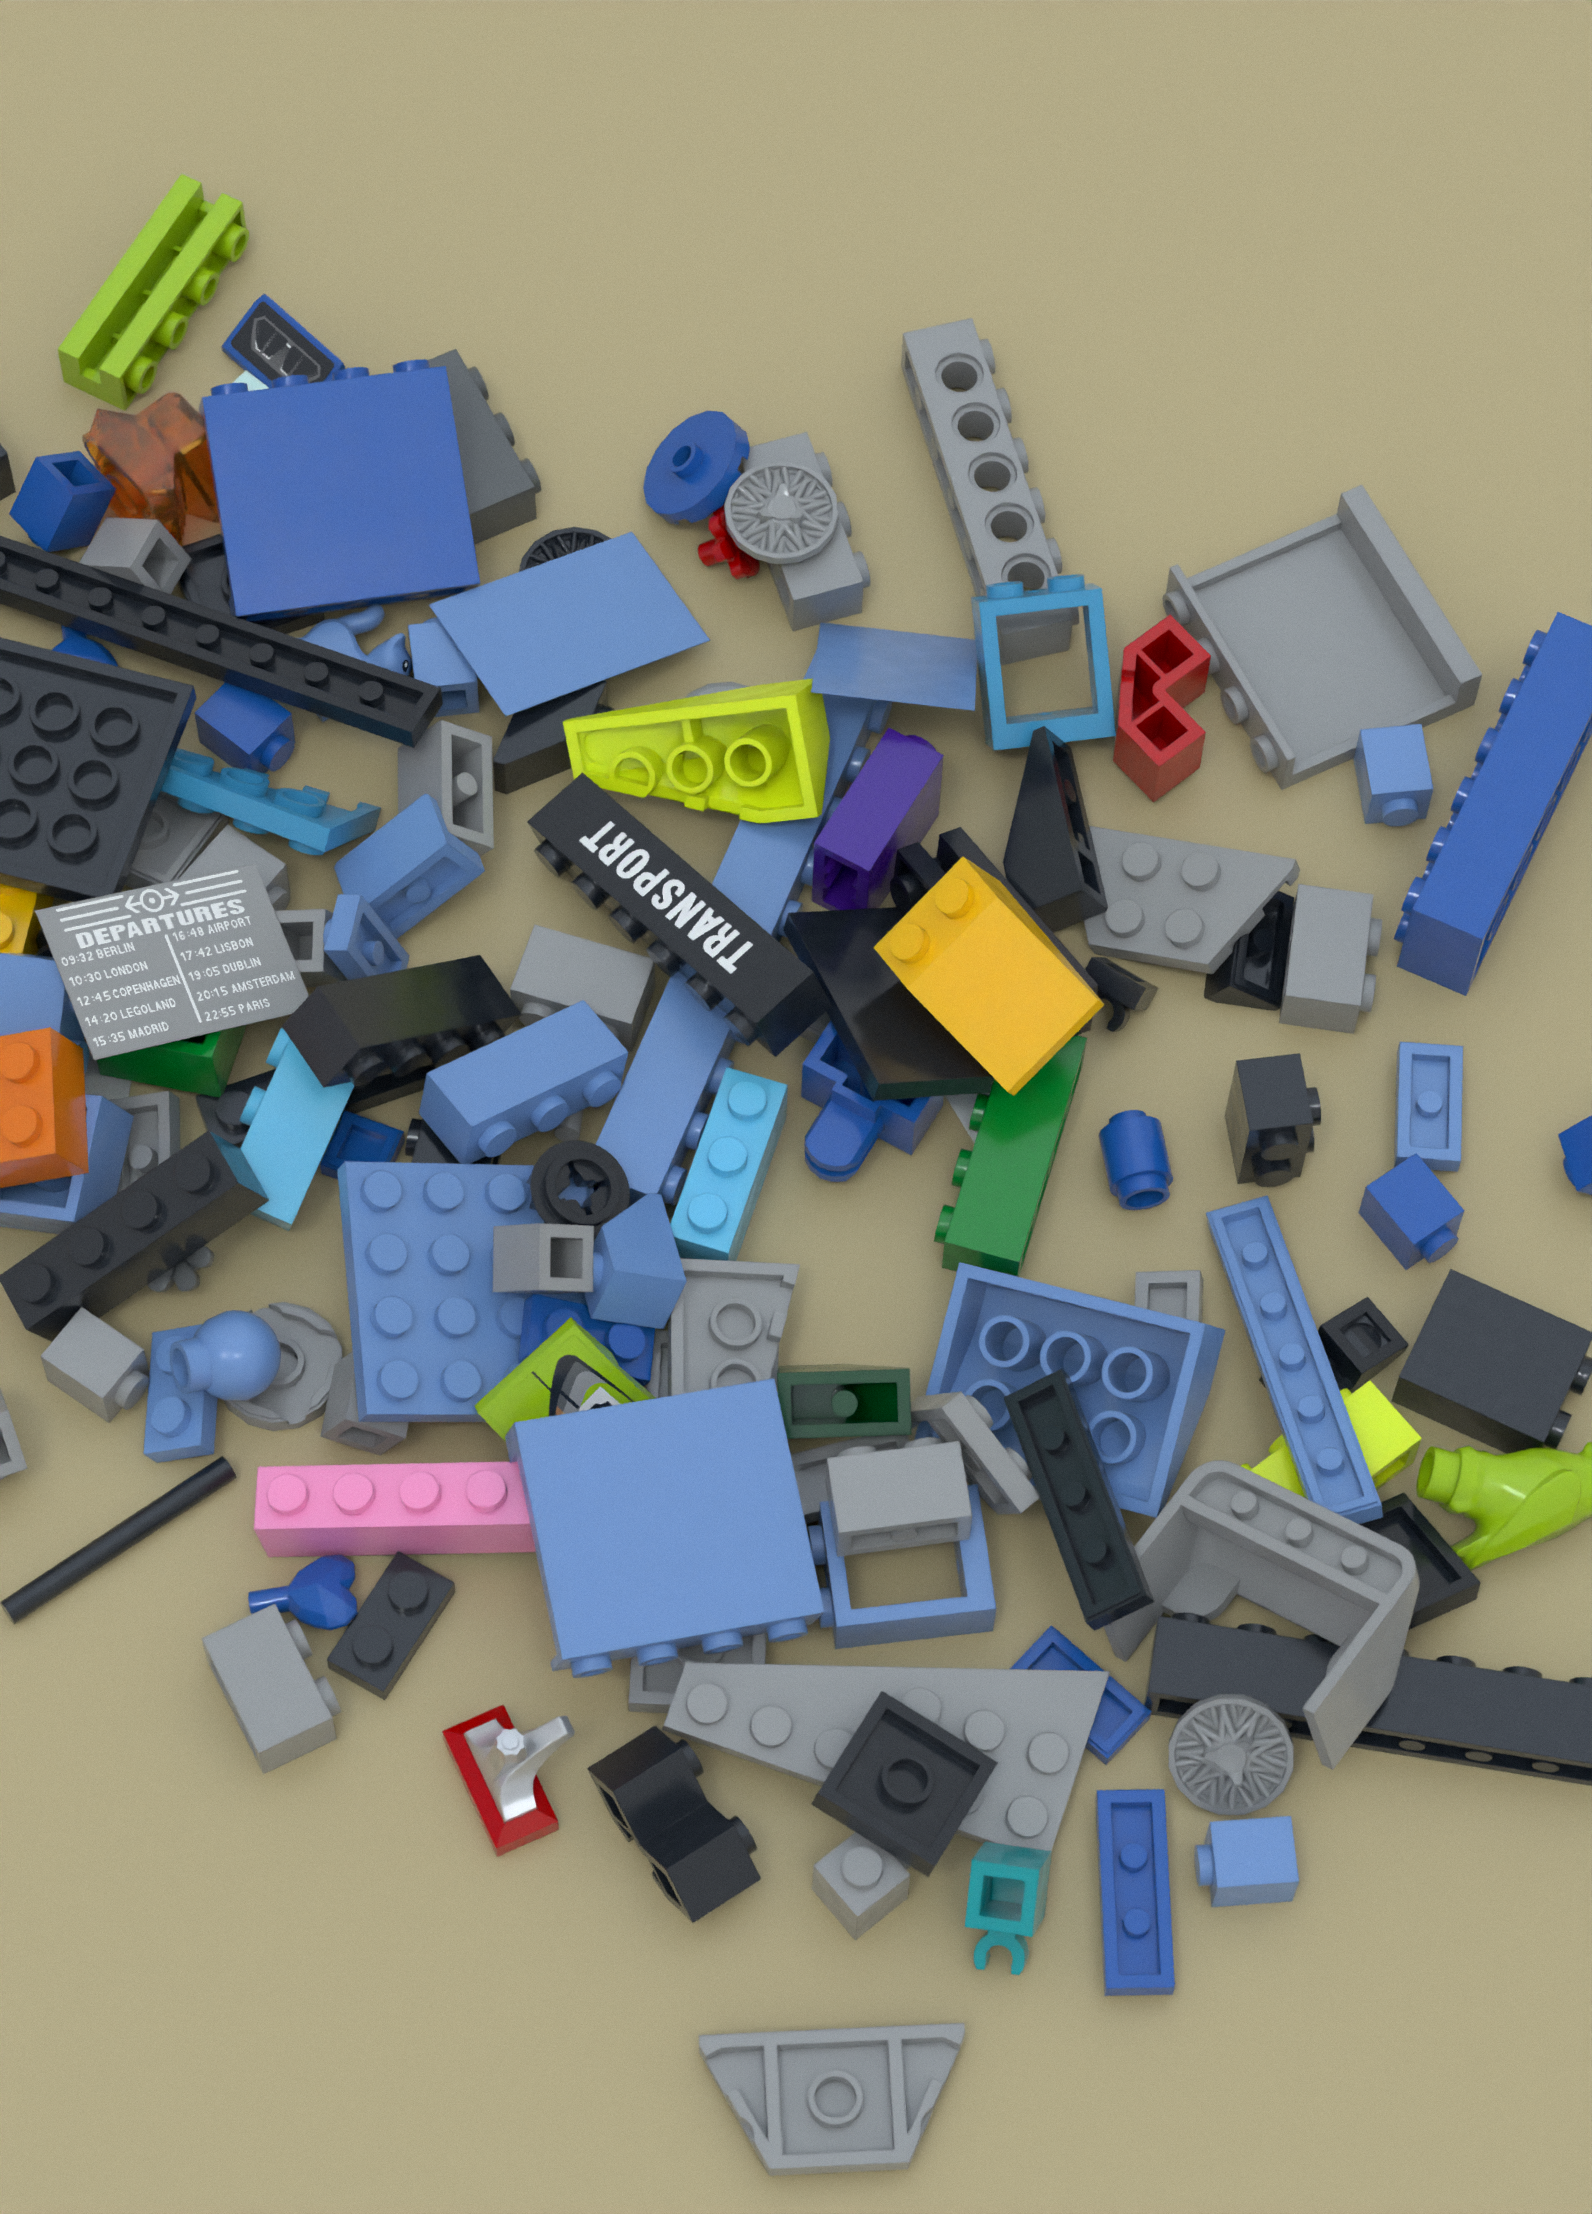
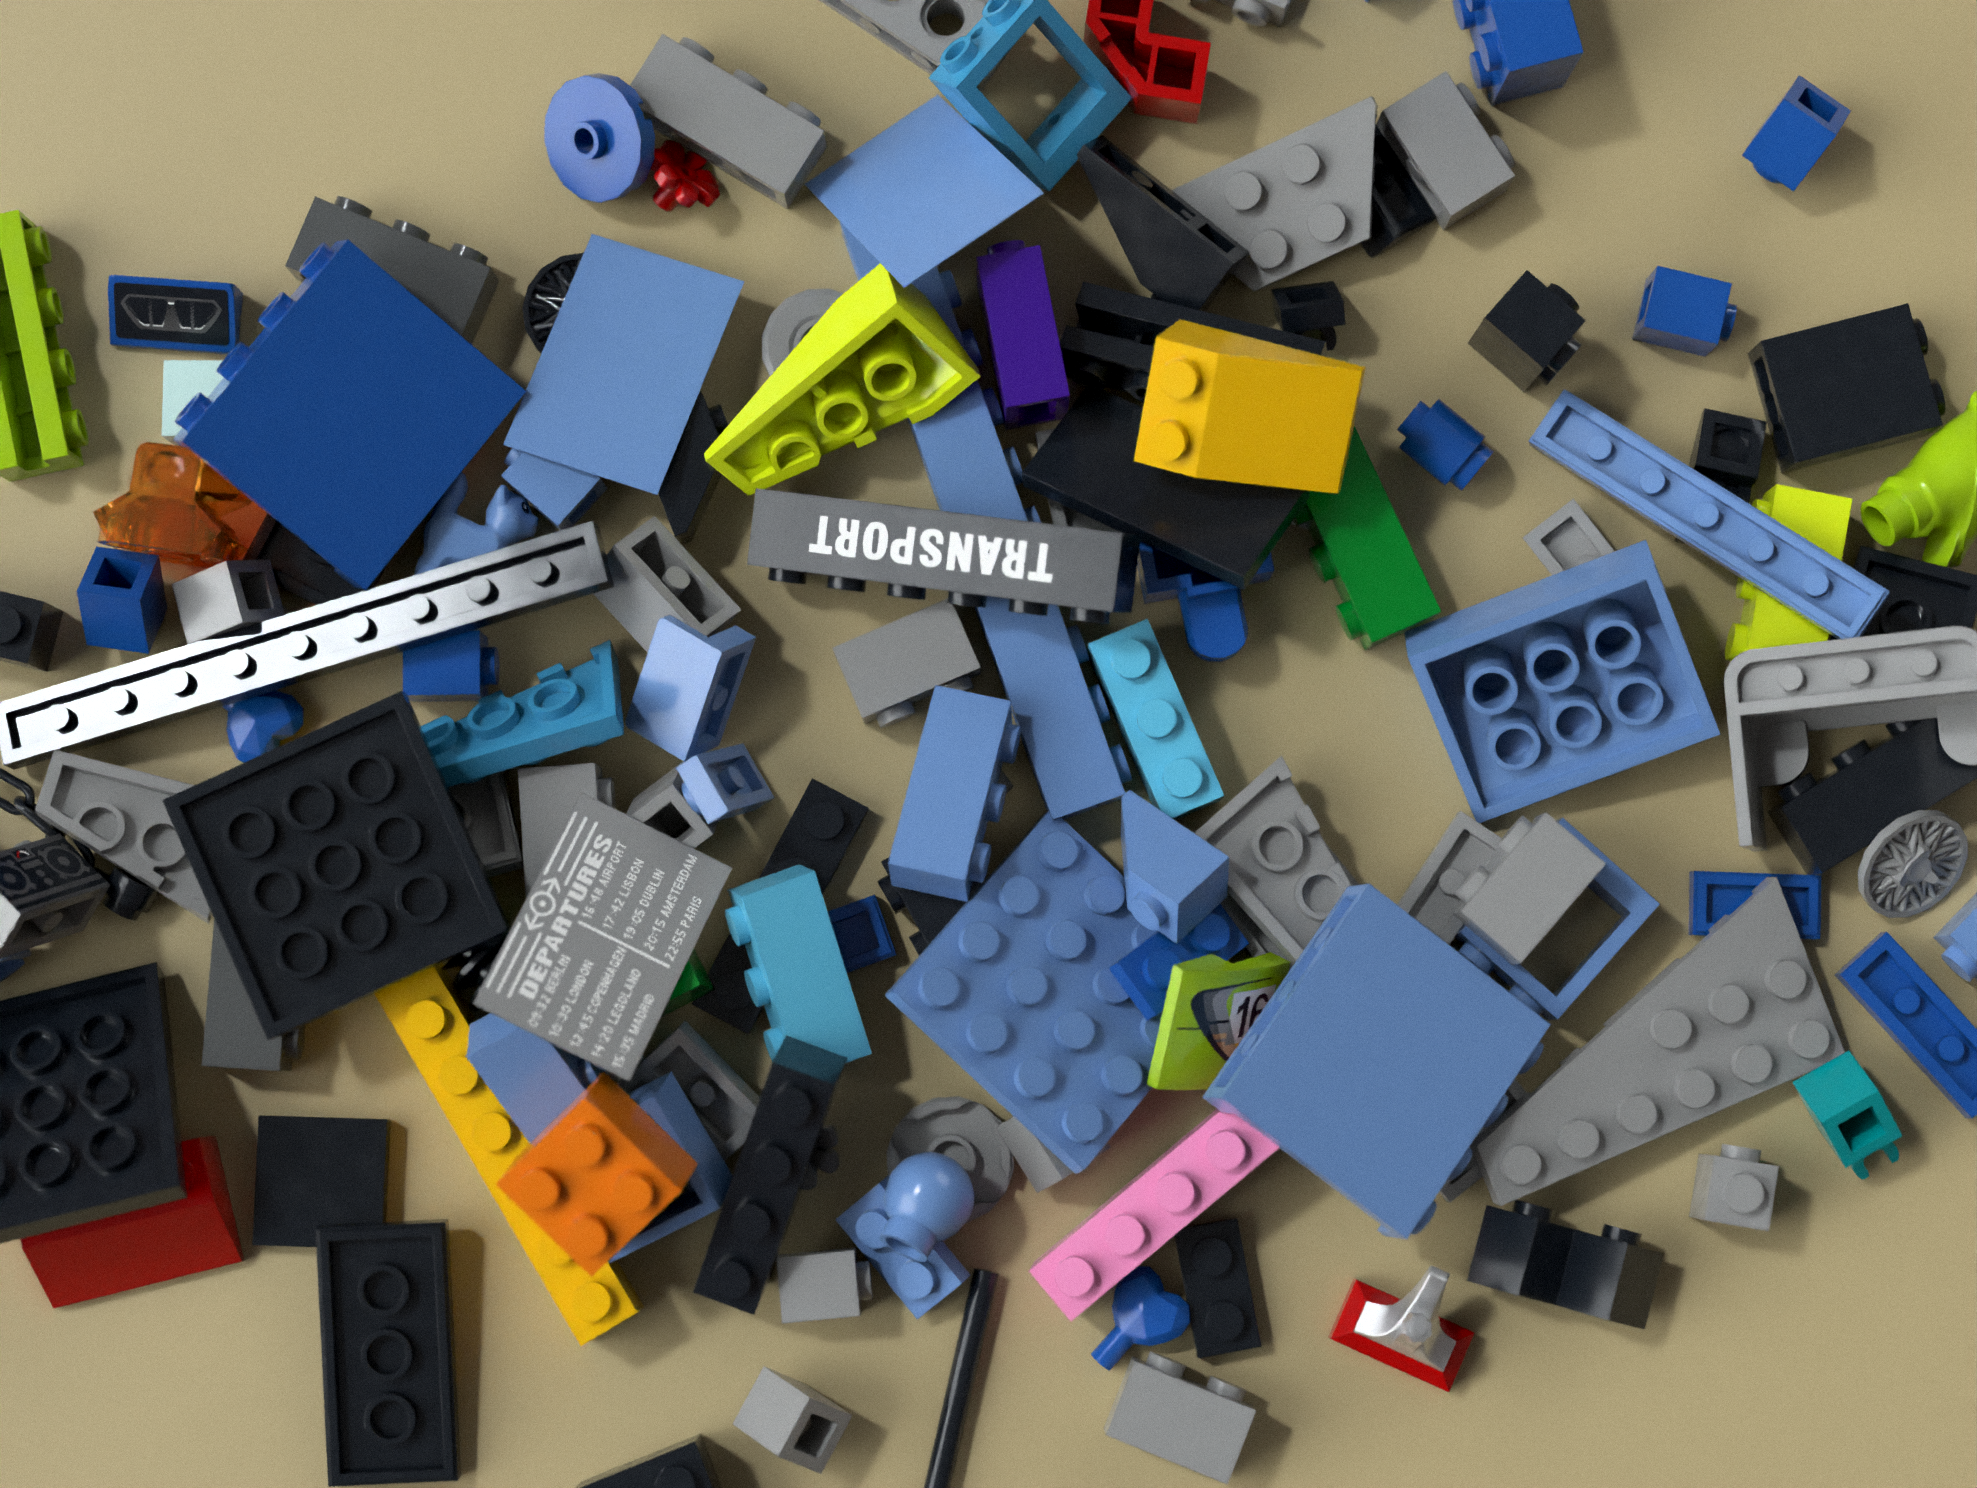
camera: 40 degrees left, 20 degrees up
(400, 1020) = (821, 831): black brick -> none
(543, 1258) = (1110, 936): light grey brick -> none
(588, 1167) = (1098, 839): black gear -> none
(781, 512) = (711, 127): light grey wheel -> none
(834, 2093) = (1846, 1360): light grey wing -> none
(844, 1400) = (1406, 836): dark green slope -> none
(904, 1783) = (1723, 1106): black plate -> none
(997, 1470) = (1533, 794): light grey wing -> none
(1078, 1500) = (1663, 777): black tile -> none
(1429, 1104) = (1620, 210): medium blue plate -> none

